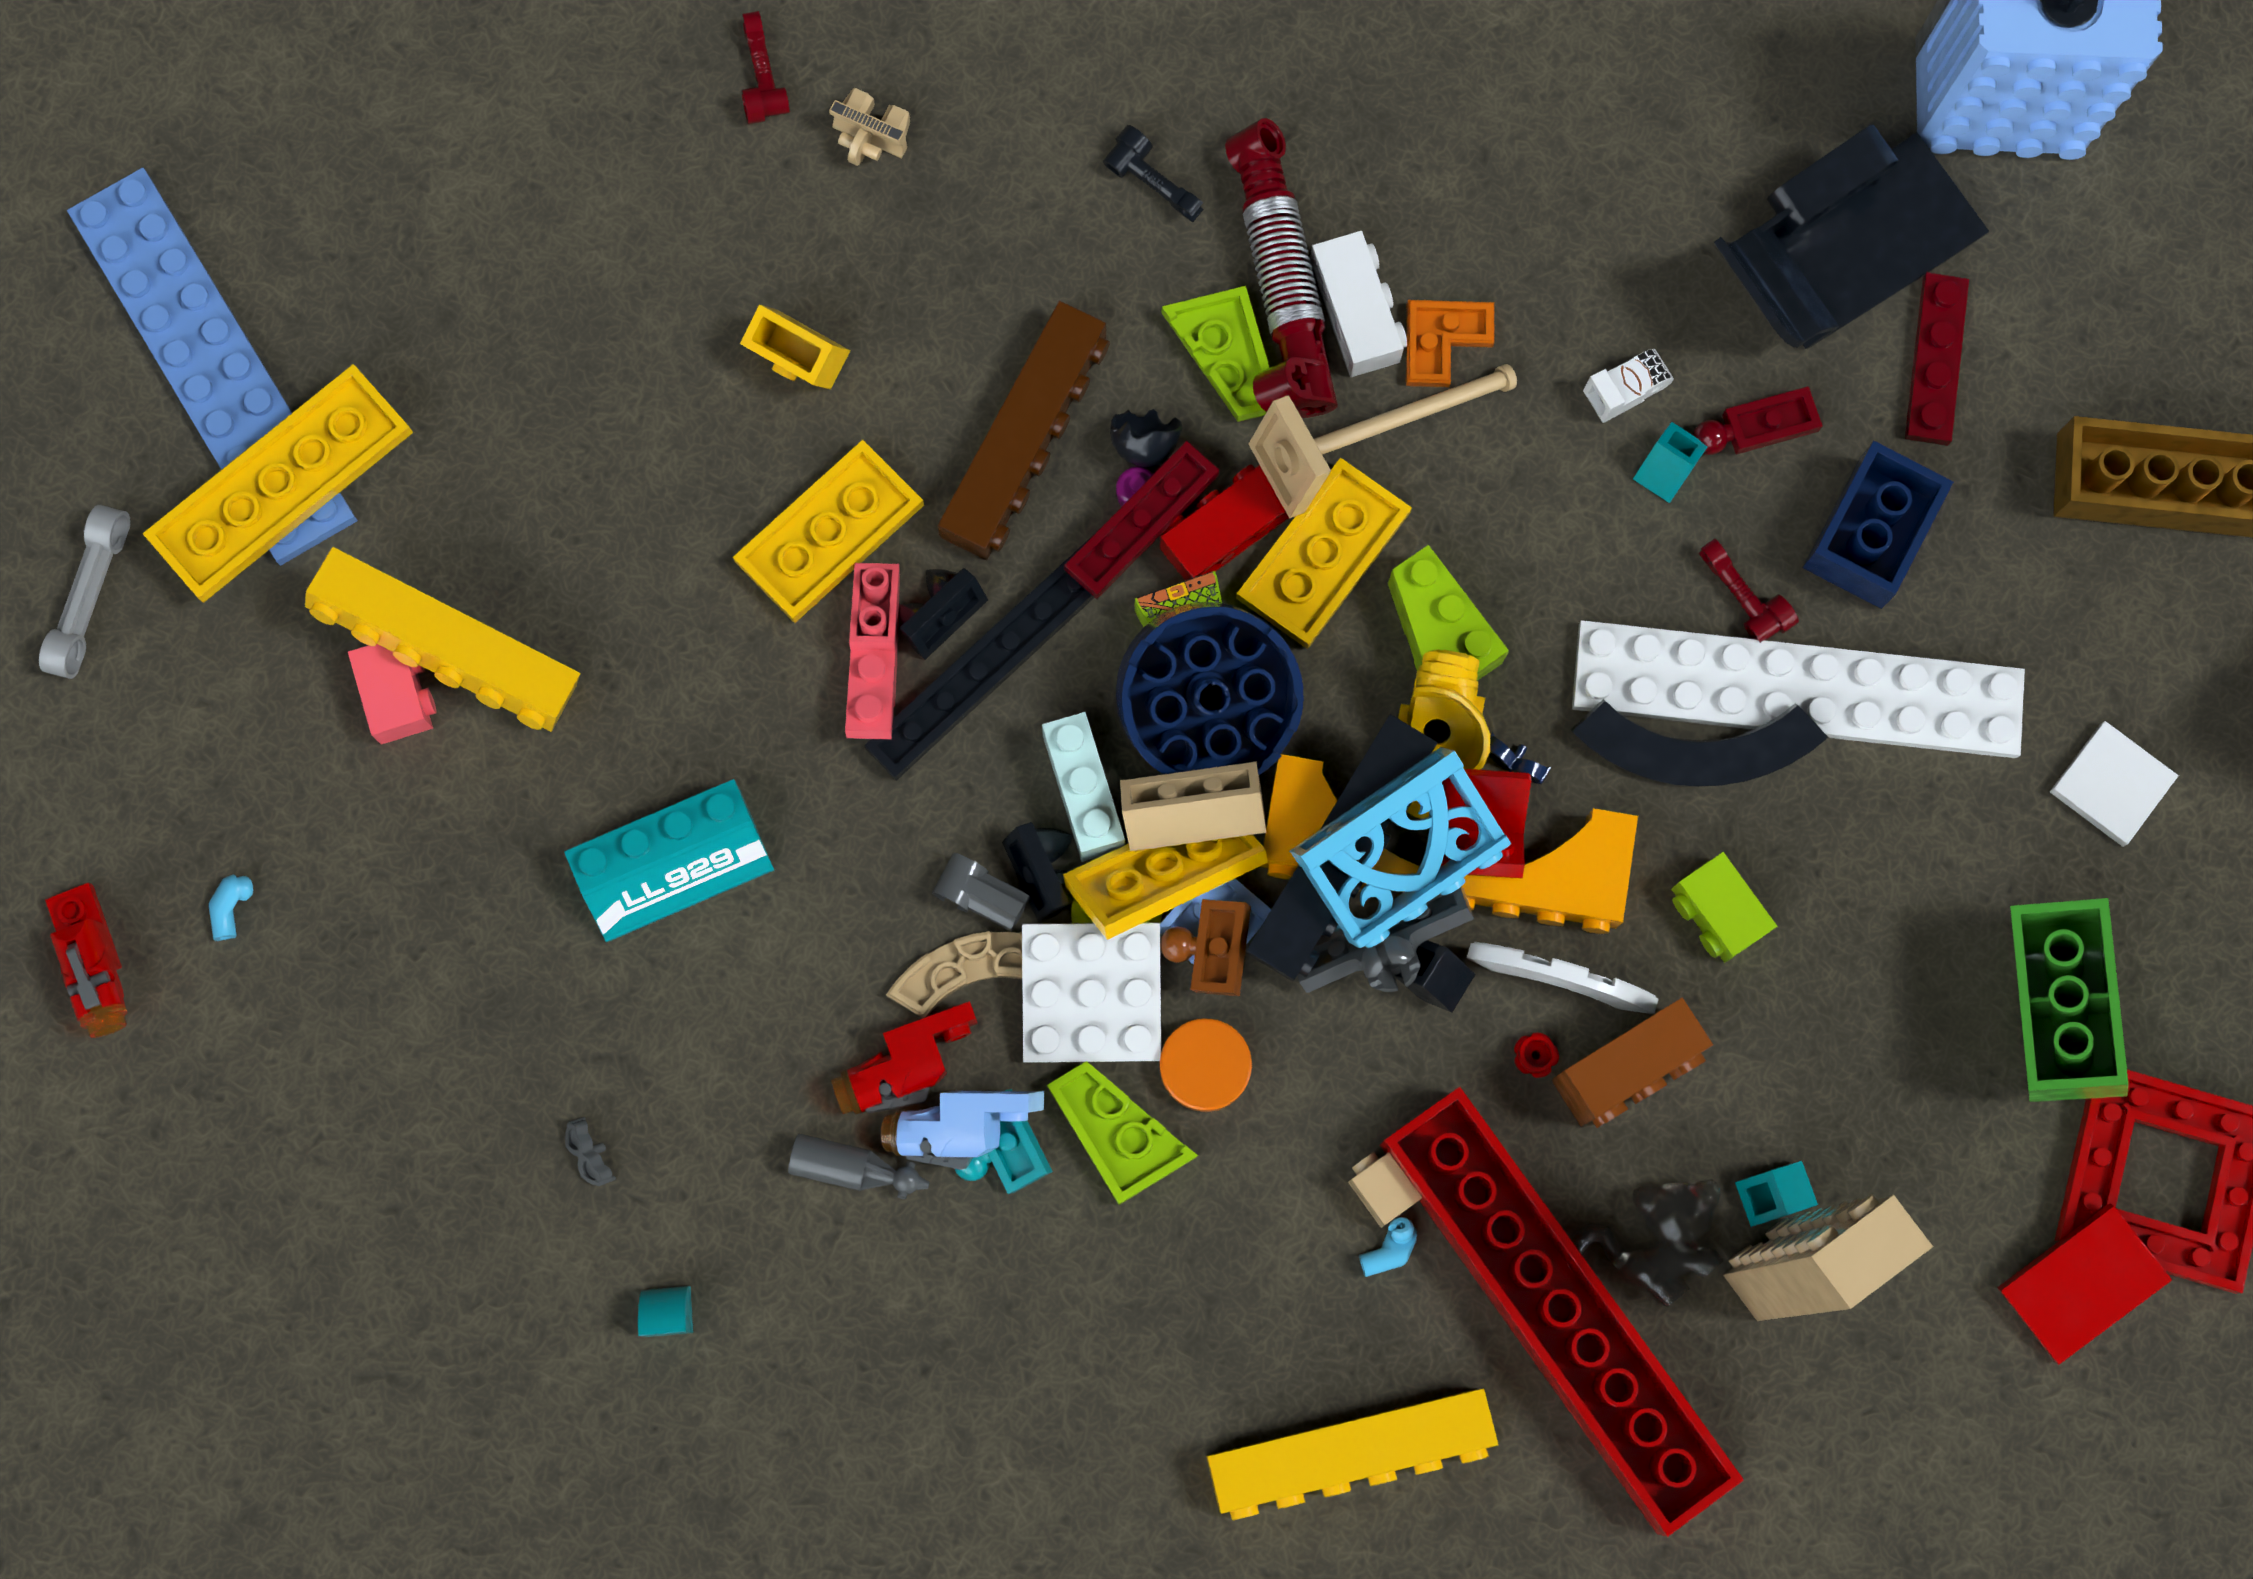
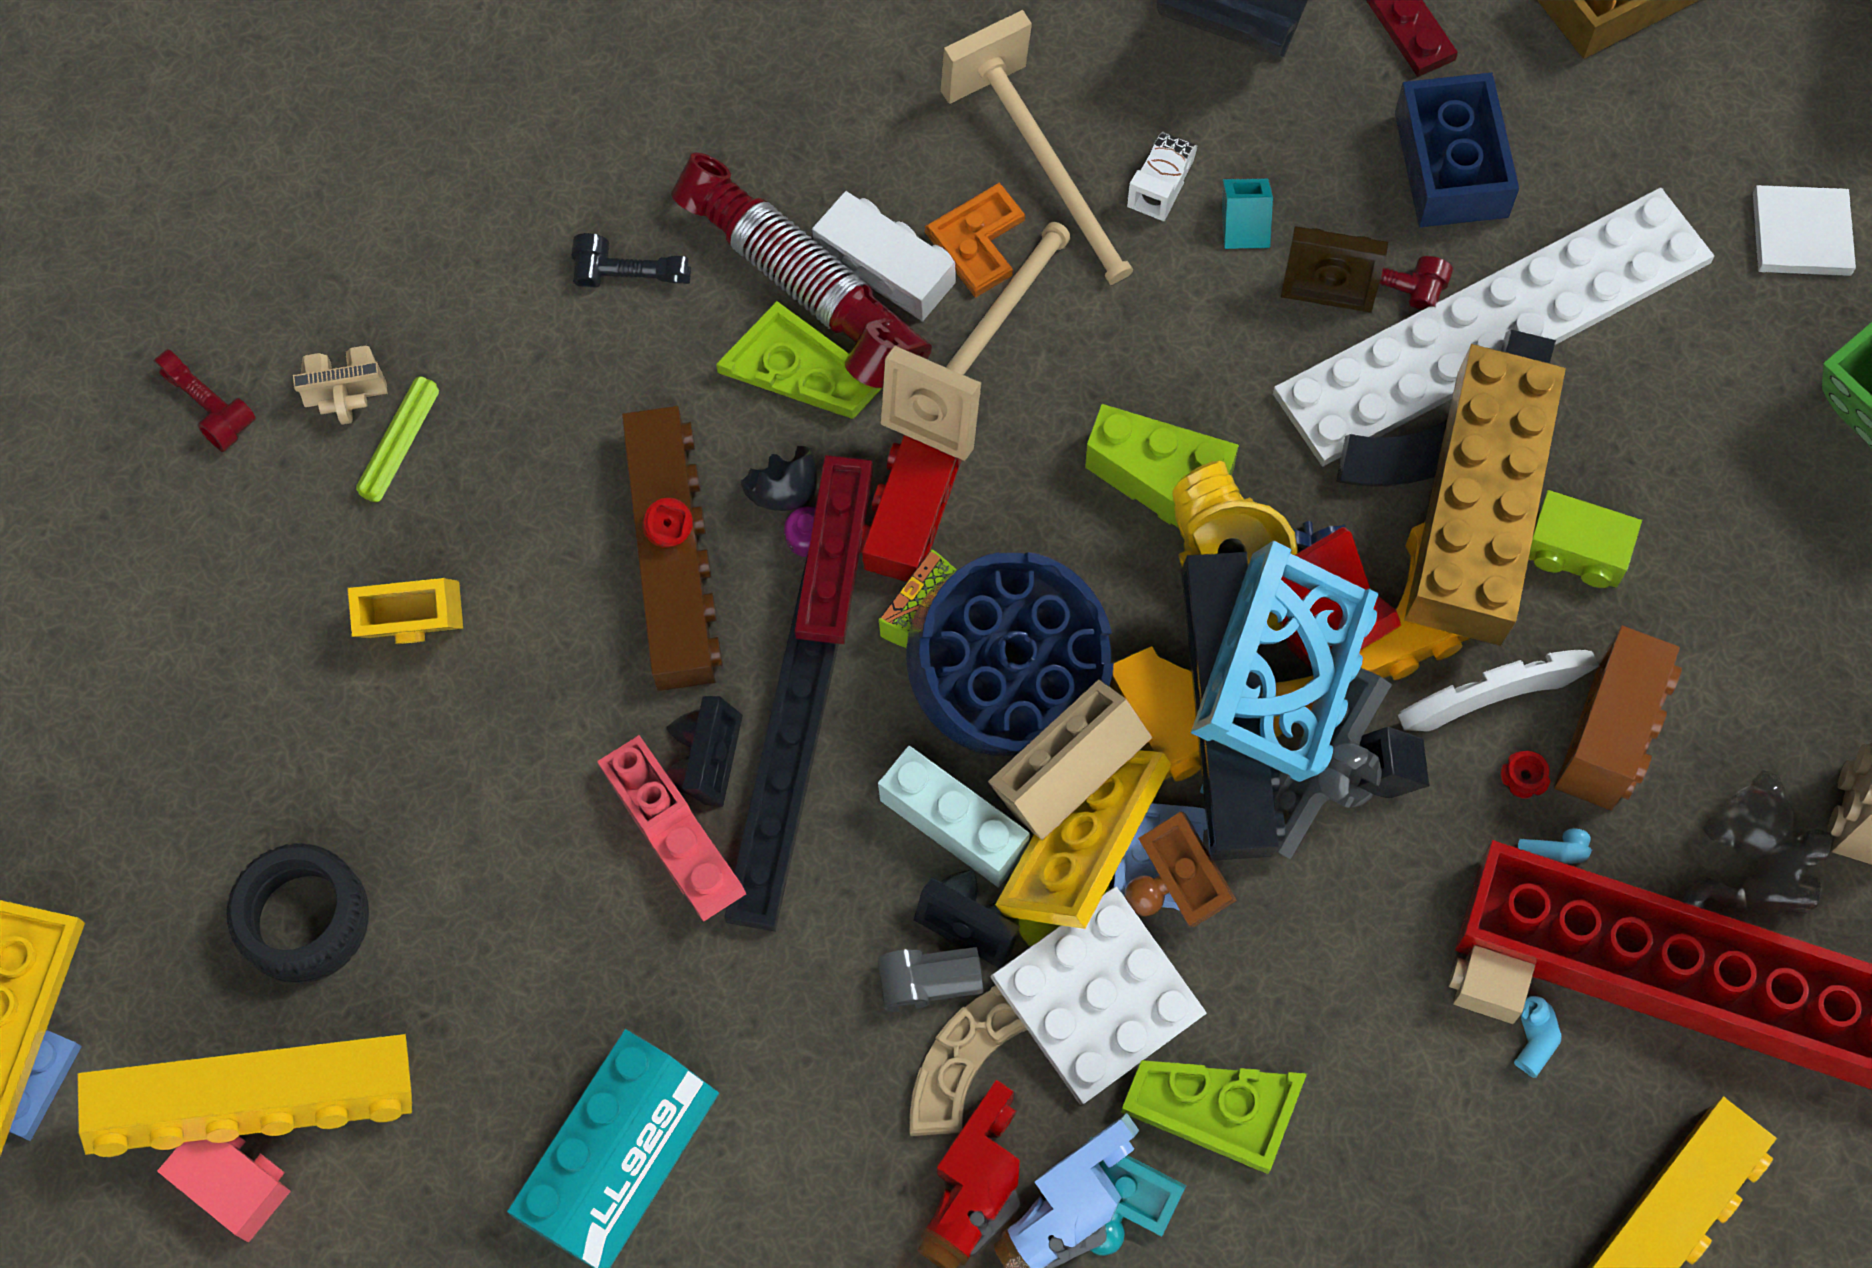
camera: 30 degrees left, 10 degrees down
(543, 491) = (332, 947): none -> black tyre
(828, 531) = (551, 752): yellow plate -> none
(883, 202) = (397, 439): none -> lime axle
(1029, 414) = (667, 522): none -> red tile
(1205, 1065) = (1249, 988): orange tile -> none
(1323, 553) = (1014, 474): yellow plate -> none
(1509, 1129) = (1571, 851): none -> medium azure arm
(1555, 193) = (988, 59): none -> tan tile
(1666, 822) = (1486, 495): none -> pearl gold brick
(1697, 558) = (1334, 269): none -> dark brown plate
(1762, 423) = (1296, 134): dark red plate -> none
(1776, 1193) = (1820, 748): teal brick -> none

